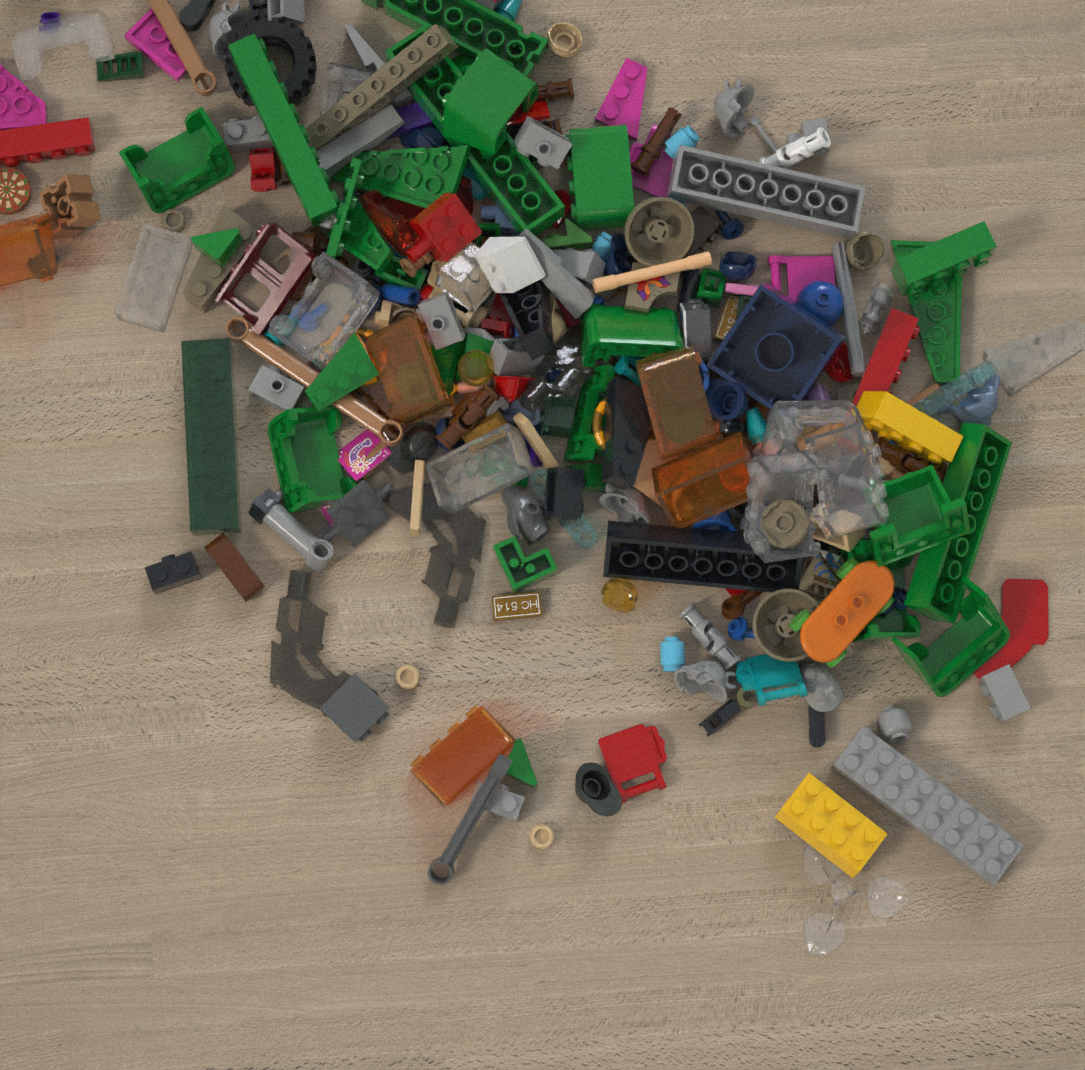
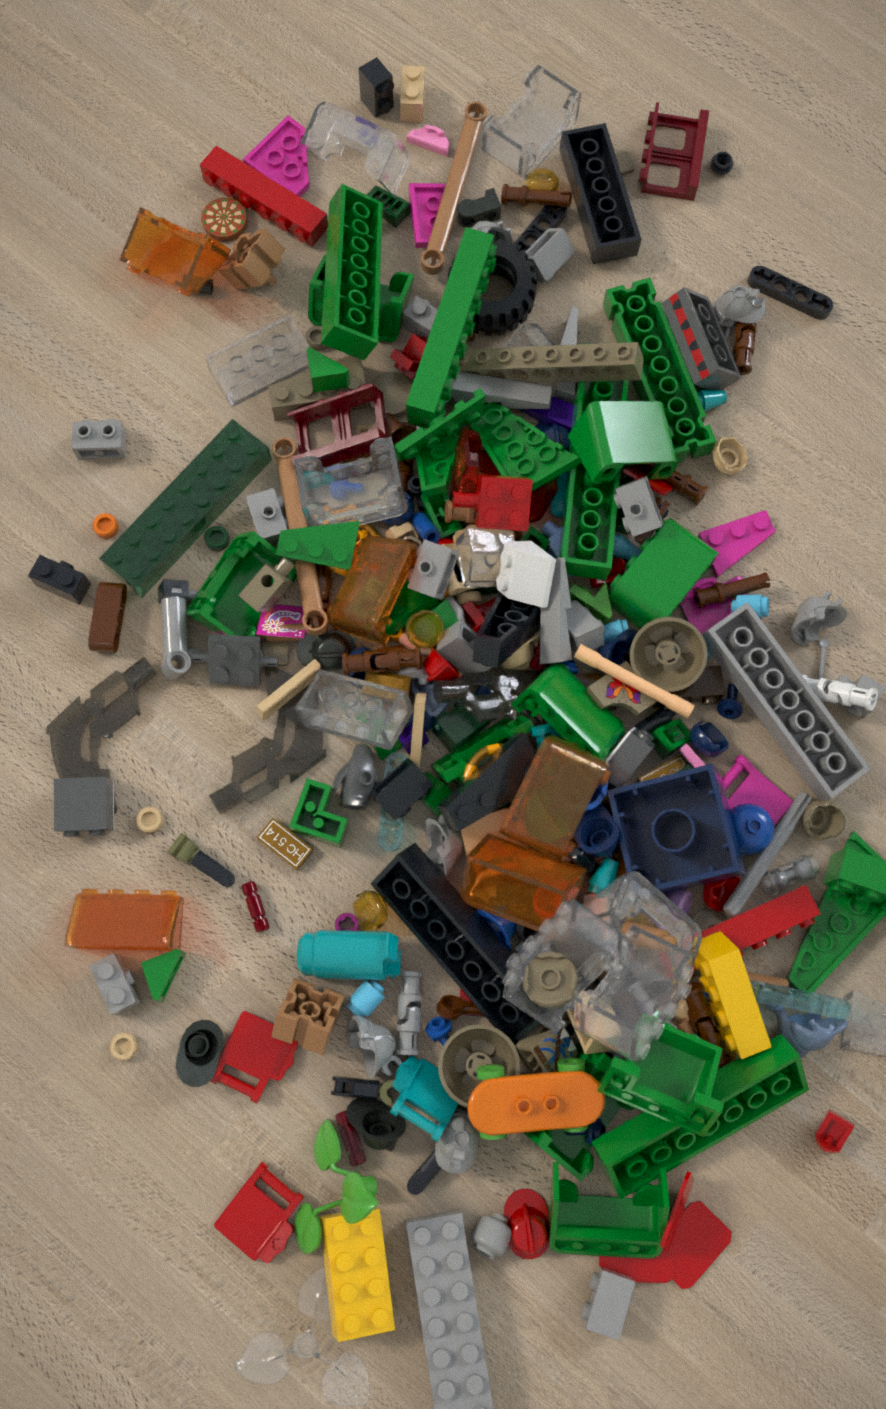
camera: 40 degrees right, 5 degrees down
(93, 445) = (99, 439): none -> light grey brick
(161, 148) = (352, 273): none -> green brick
(162, 505) = (105, 526): none -> orange tile
(253, 439) = (217, 538): none -> dark green tile
(272, 208) = (395, 392): none -> dark tan tile
(333, 448) = (260, 591): none -> dark tan torso
(455, 673) = (186, 850): none -> piece
(470, 818) = (73, 979): dark grey piece -> none
(538, 665) = (255, 907): none -> dark red axle
(556, 178) = (624, 548): none -> medium azure cone
(619, 621) = (342, 918): none -> magenta bush
(635, 635) = (349, 955): none -> teal piece
(647, 699) = (307, 1016): none -> medium nougat brick
(736, 859) = (256, 1220): none -> red piece
(747, 751) = (351, 1140): none -> dark red axle
(757, 724) = (375, 1123): none -> pearl dark grey piece
(785, 773) = (357, 1192): none -> bright green plant
(912, 695) = (528, 1222): none -> red piece
(996, 596) = (677, 1211): none -> red piece
(1051, 455) = (833, 1132): none -> red plate

